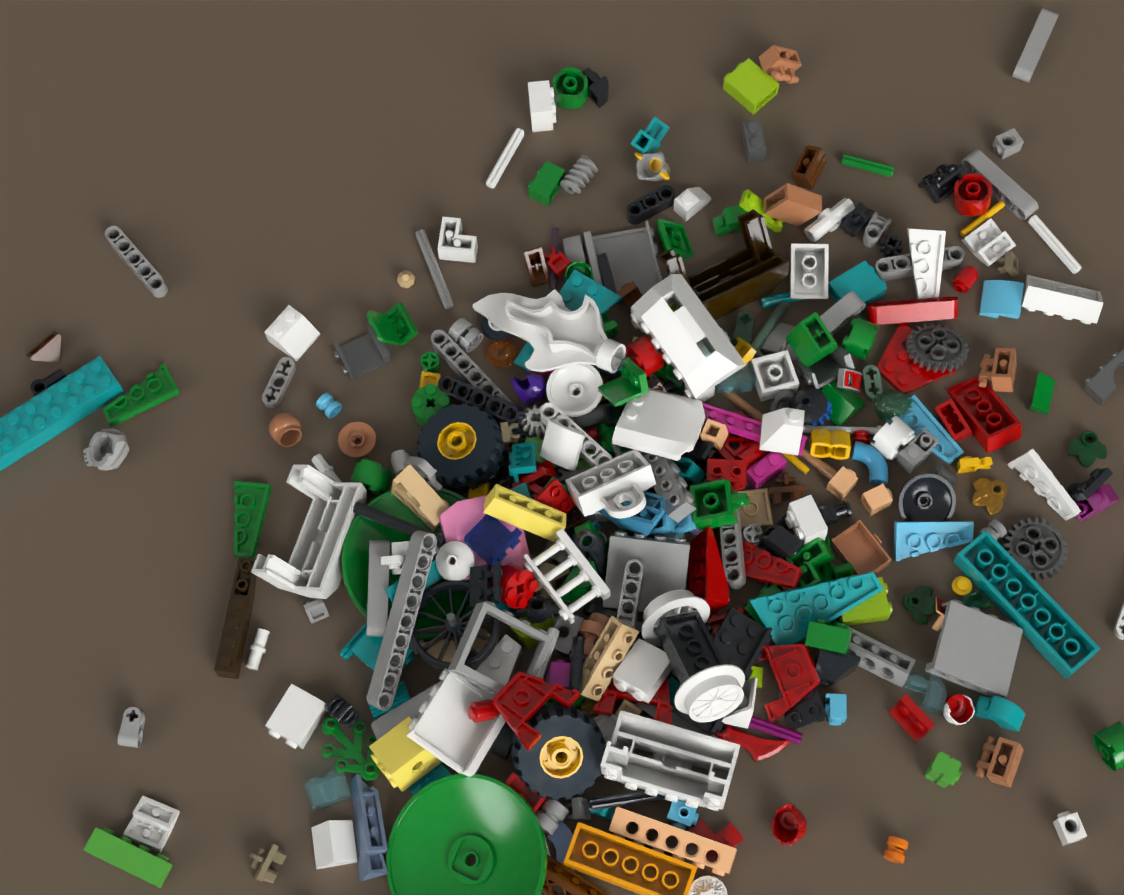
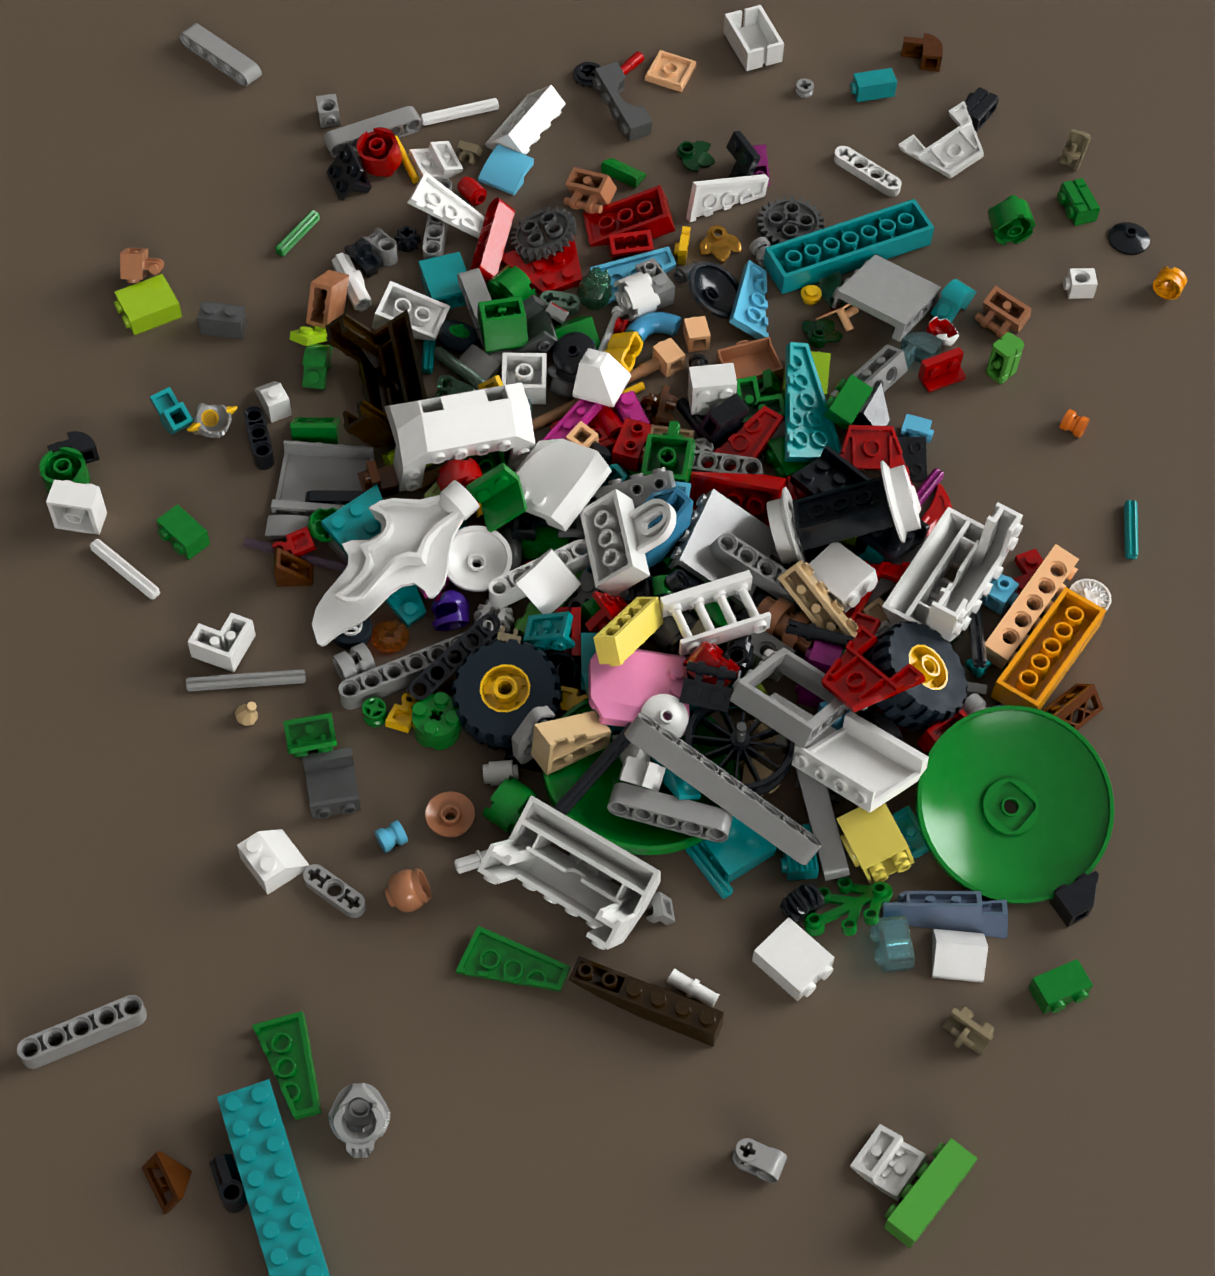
camera: 80 degrees left, 10 degrees down
(482, 711) = (850, 738): red brick -> none
(492, 539) = (655, 669): clear blue bracket -> none
(578, 175) = (188, 495): light grey piece -> none
(788, 824) = (1033, 500): red hair -> none
(799, 310) = (457, 335): none -> black wheel
(809, 167) = (280, 278): reddish brown brick -> none

